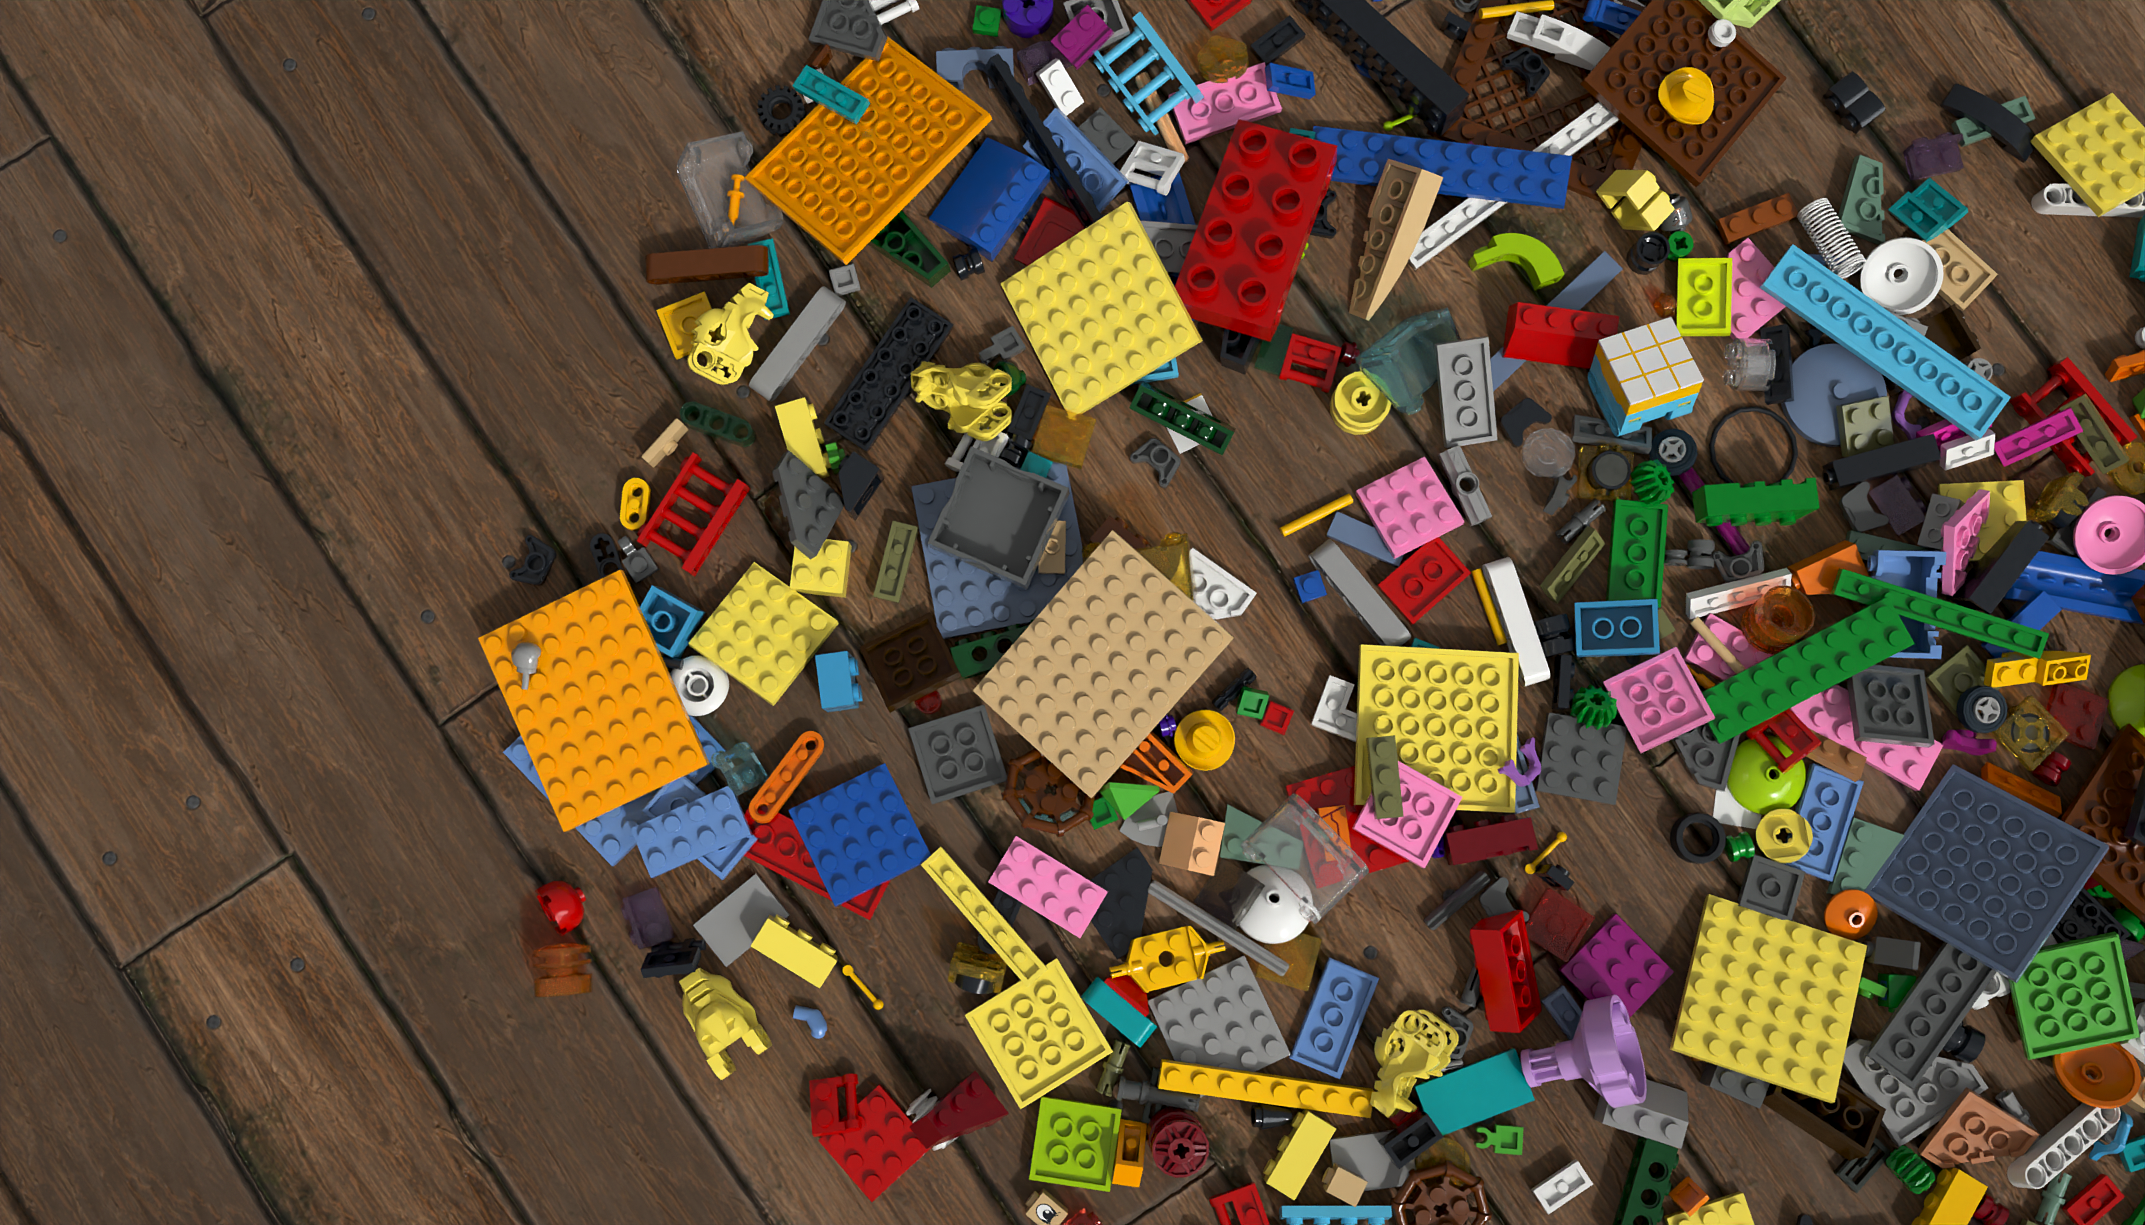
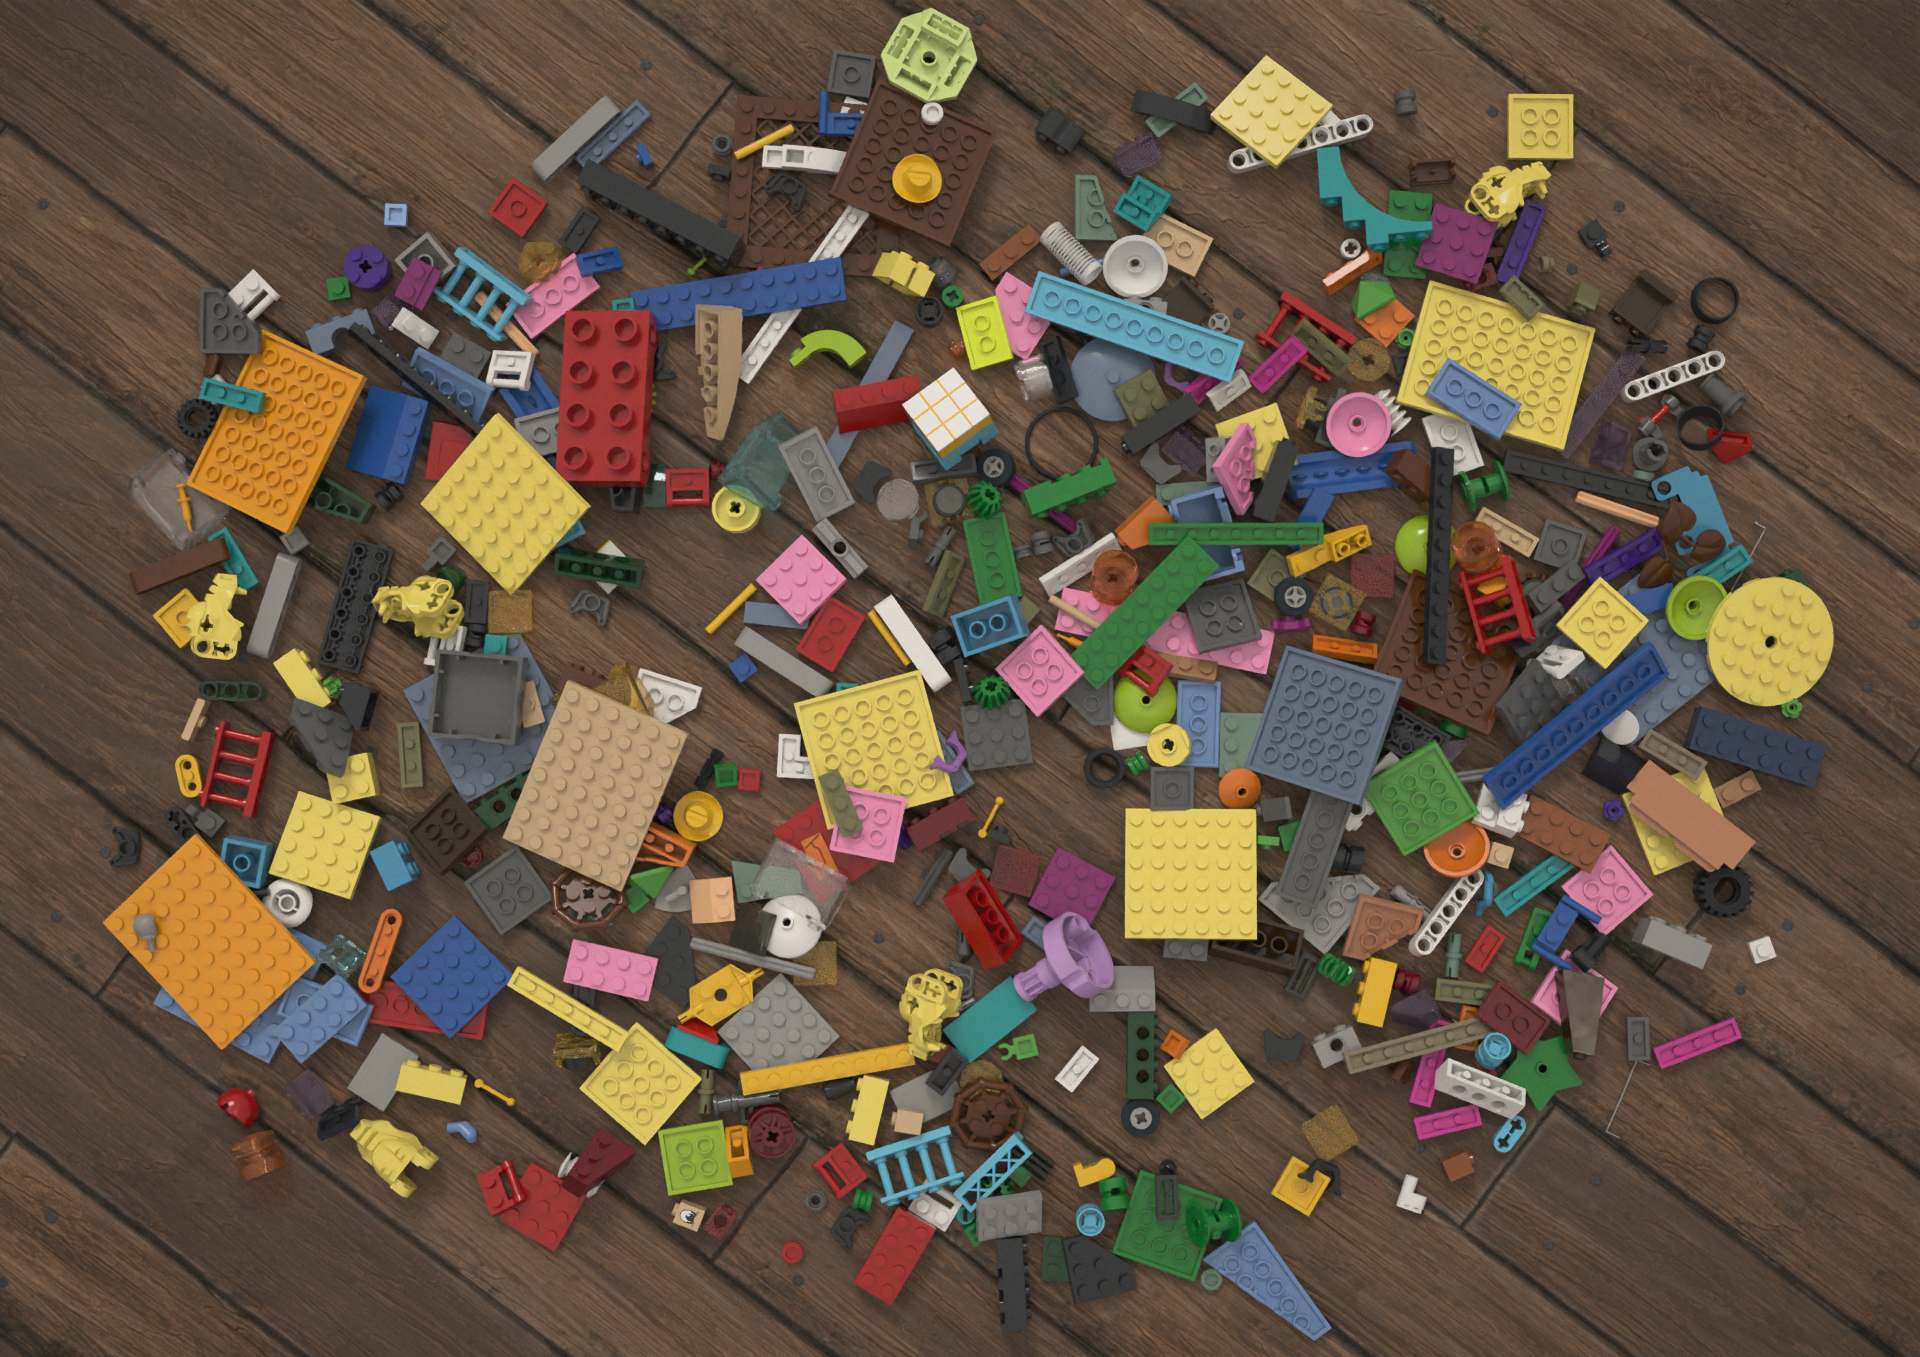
camera: 20 degrees left, 5 degrees up
(1333, 1018) = (865, 997): medium blue tile -> none

